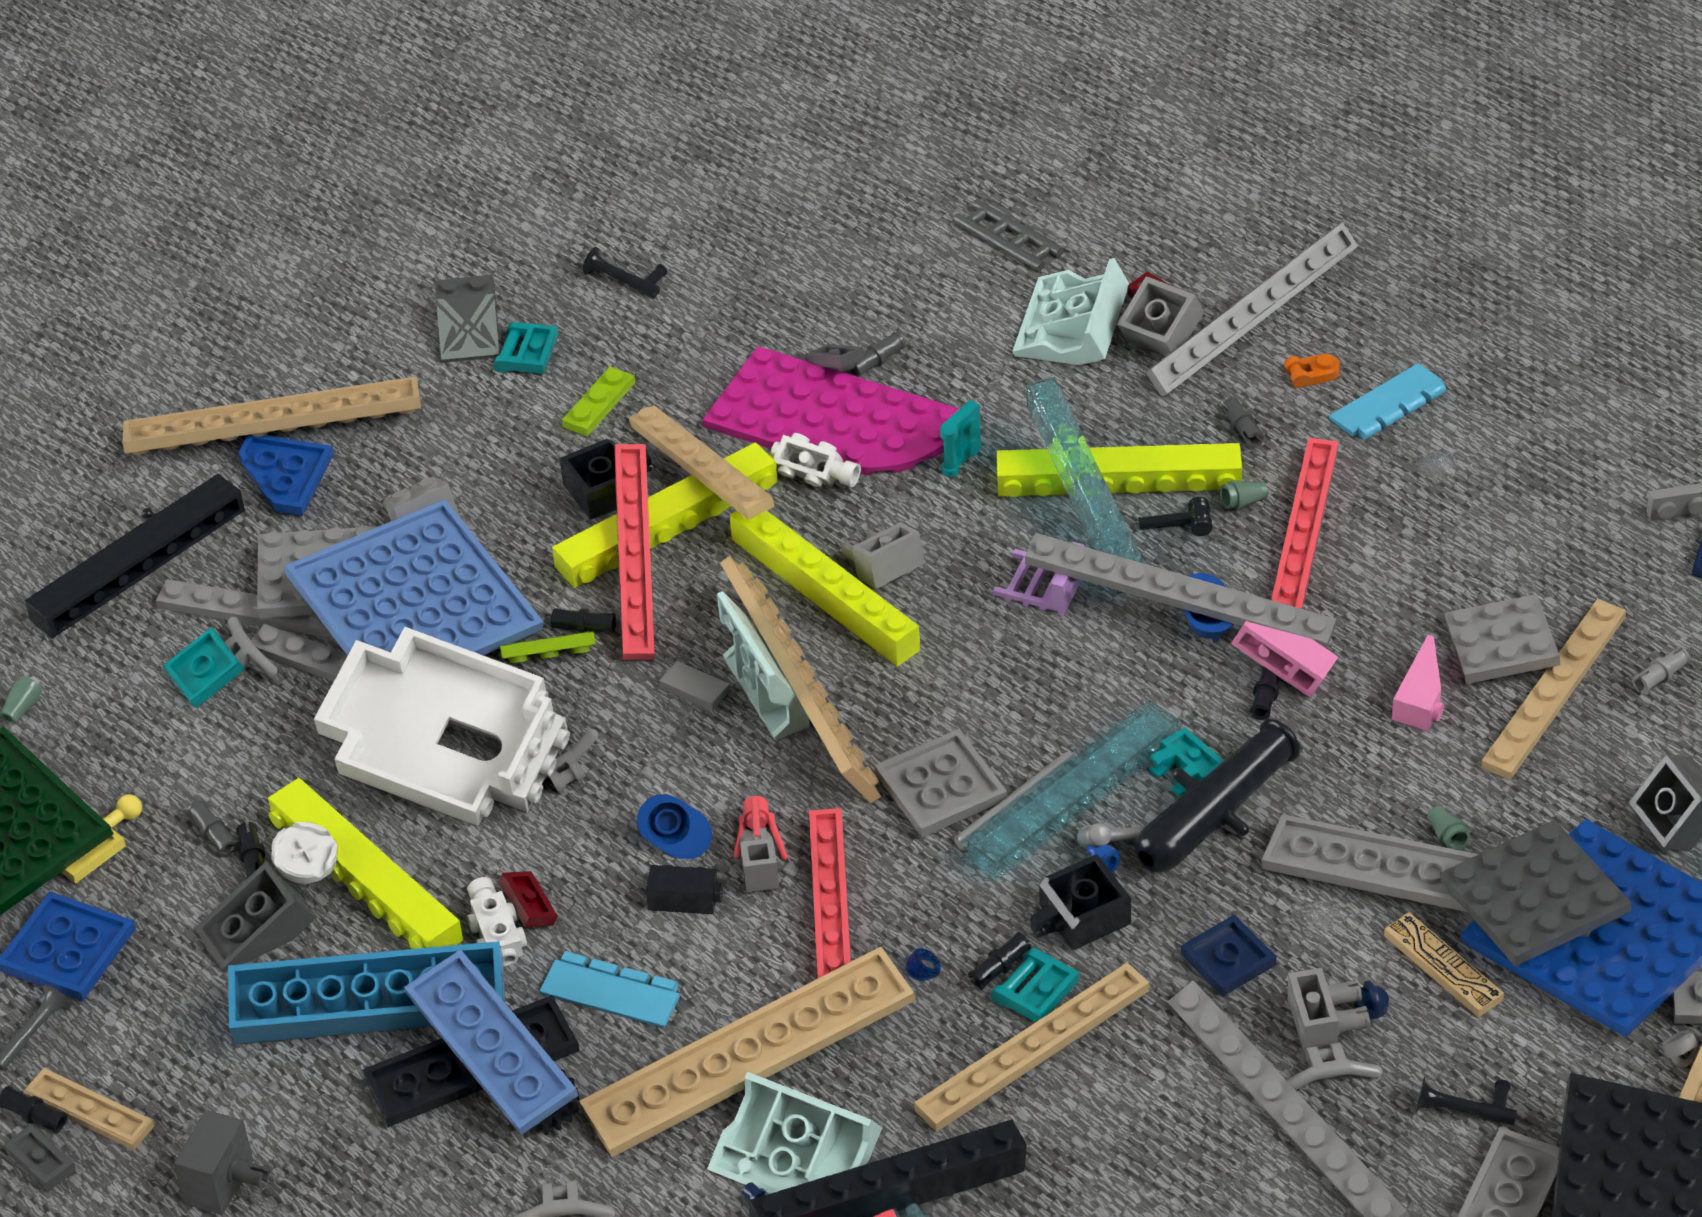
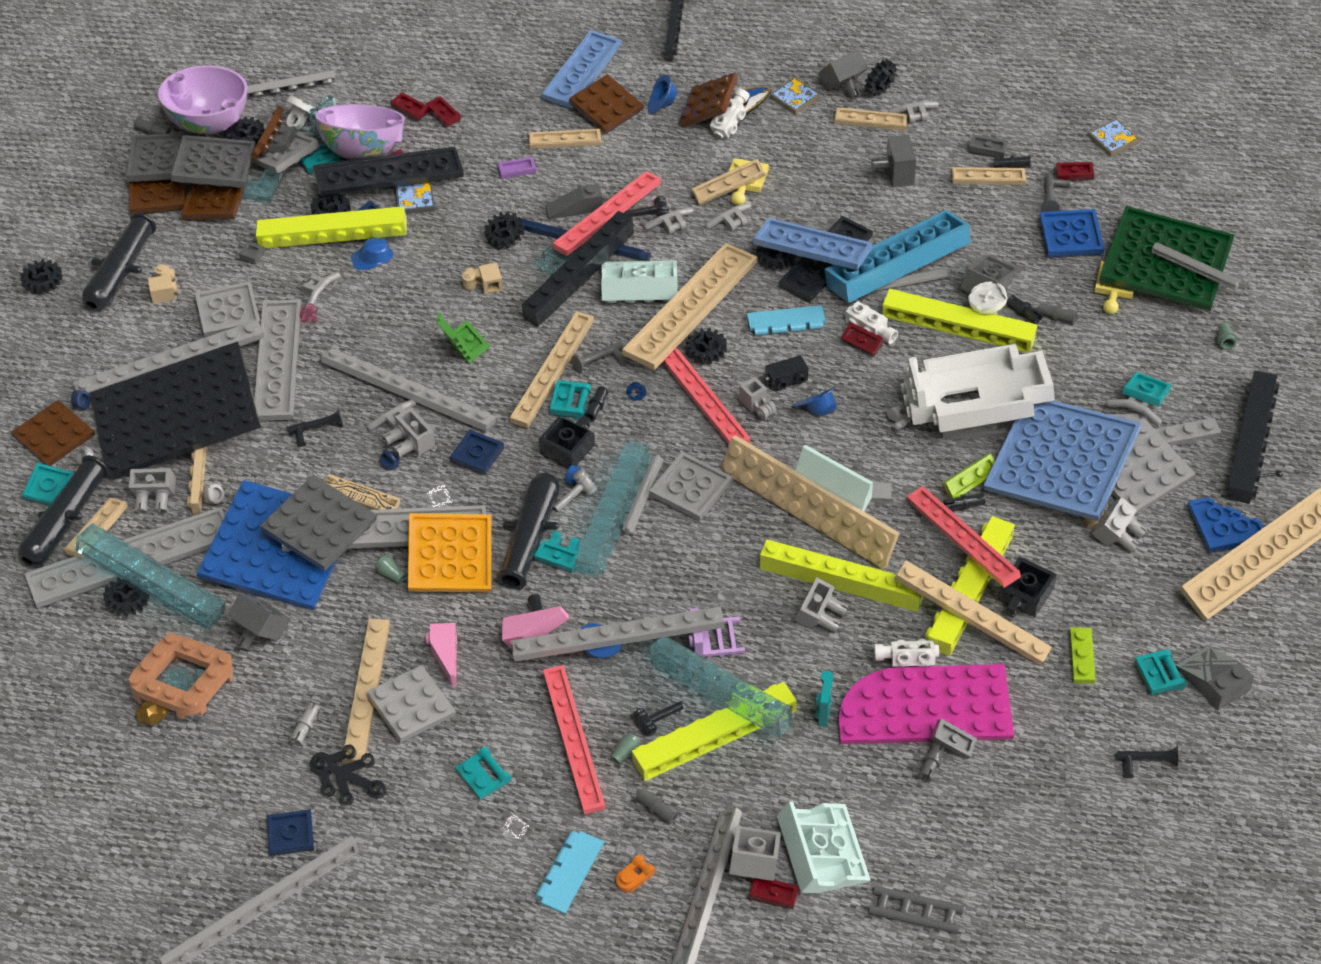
camera: 150 degrees right, 5 degrees up
(757, 816) = (778, 427): coral plant -> none
(767, 979) = (706, 345): none -> black gear
(918, 1045) = (579, 362): none -> dark grey piece
(1152, 1145) = (464, 339): none -> bright green plate
(1352, 799) = (449, 553): none -> light orange plate
(1452, 532) = (477, 778): none -> teal plate
(1655, 613) = (345, 773): none -> black plant

